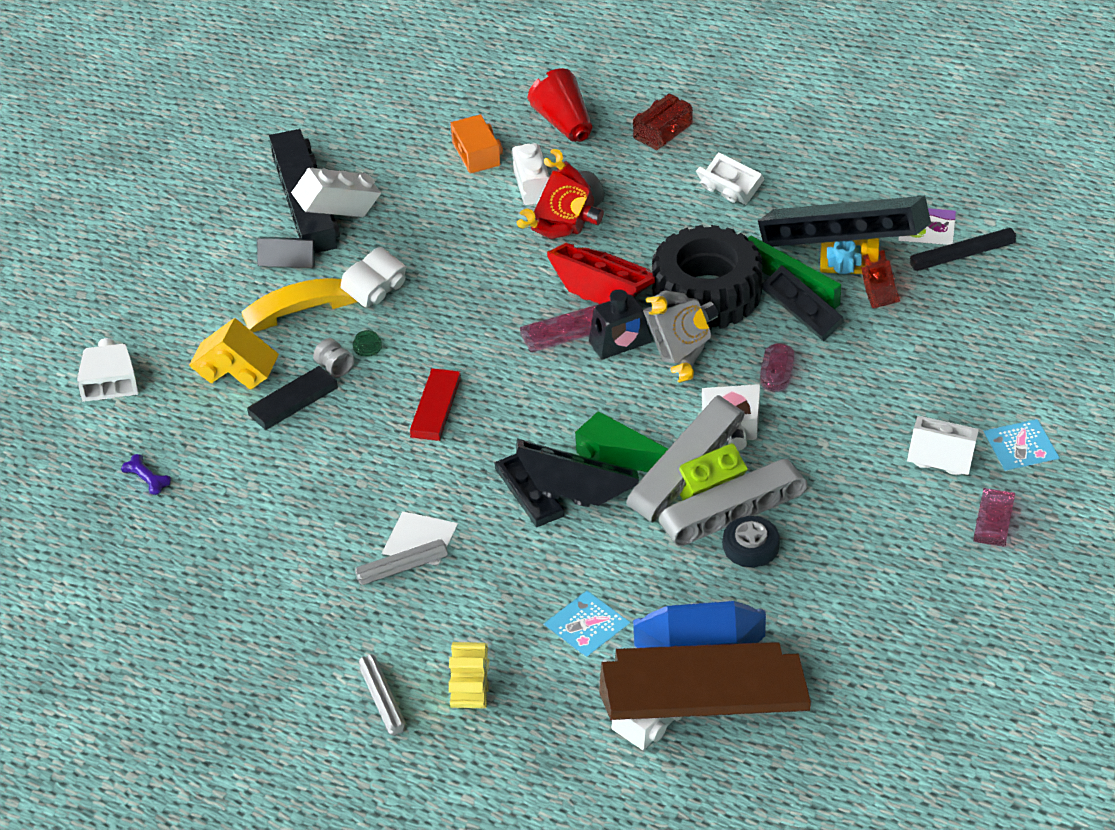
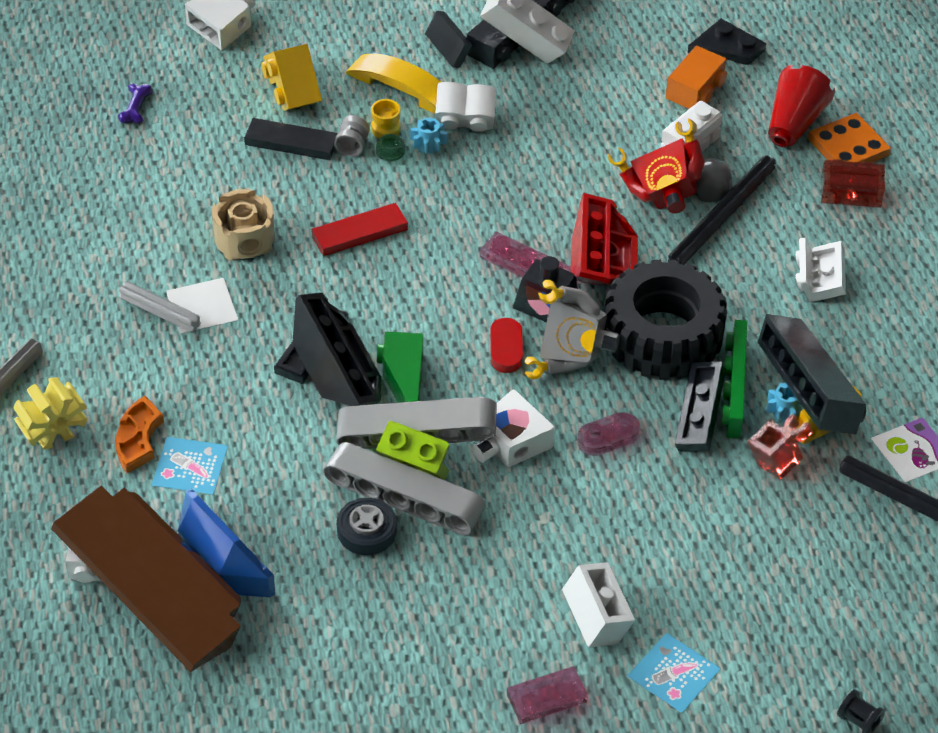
camera: 50 degrees right, 5 degrees up
(337, 326) = (385, 118): none -> yellow wheel
(371, 464) = (243, 224): none -> tan brick
(380, 314) = (428, 135): none -> medium azure gear
(449, 109) = (730, 43): none -> black wing
(525, 641) = (135, 432): none -> orange tile
(616, 104) = (849, 140): none -> orange tile
(619, 201) = (723, 210): none -> black axle
(638, 379) = (506, 345): none -> red tile

